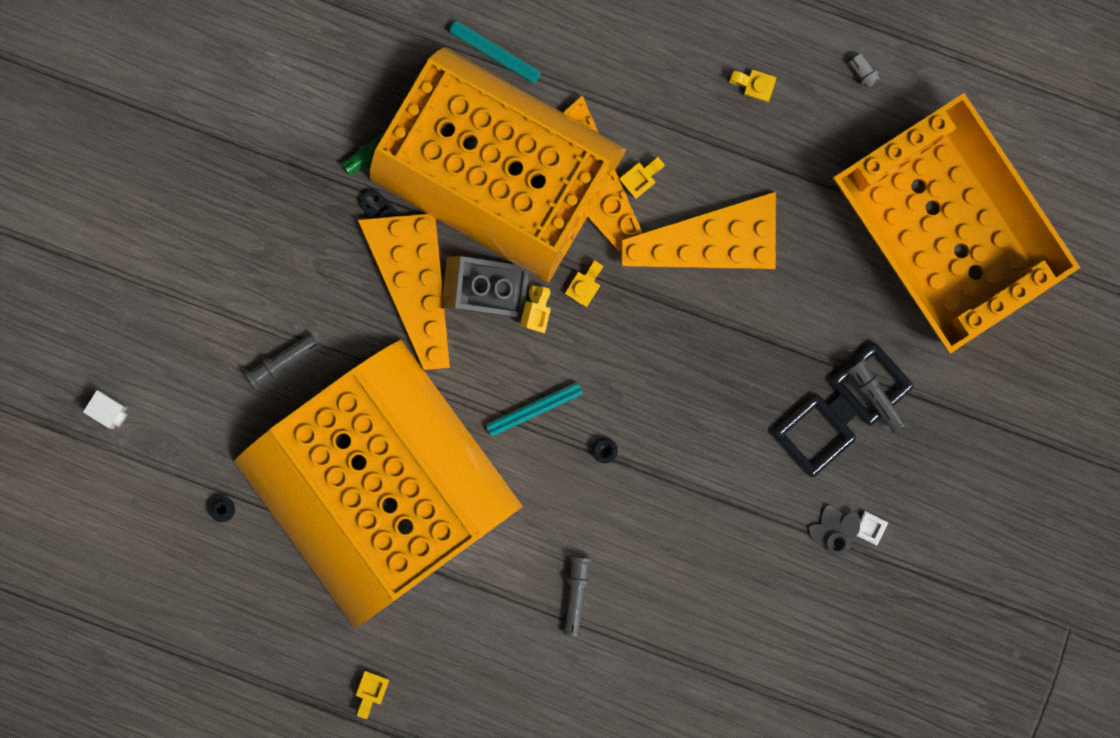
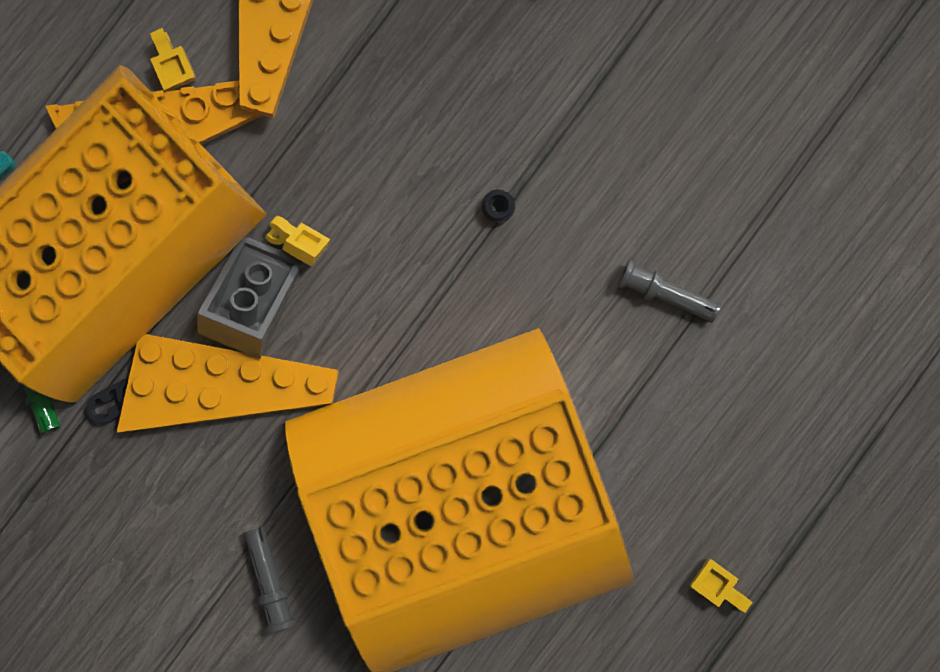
camera: 70 degrees left, 0 degrees up
(534, 409) = (421, 279): teal axle -> none
(583, 287) = (286, 173): yellow plate -> none

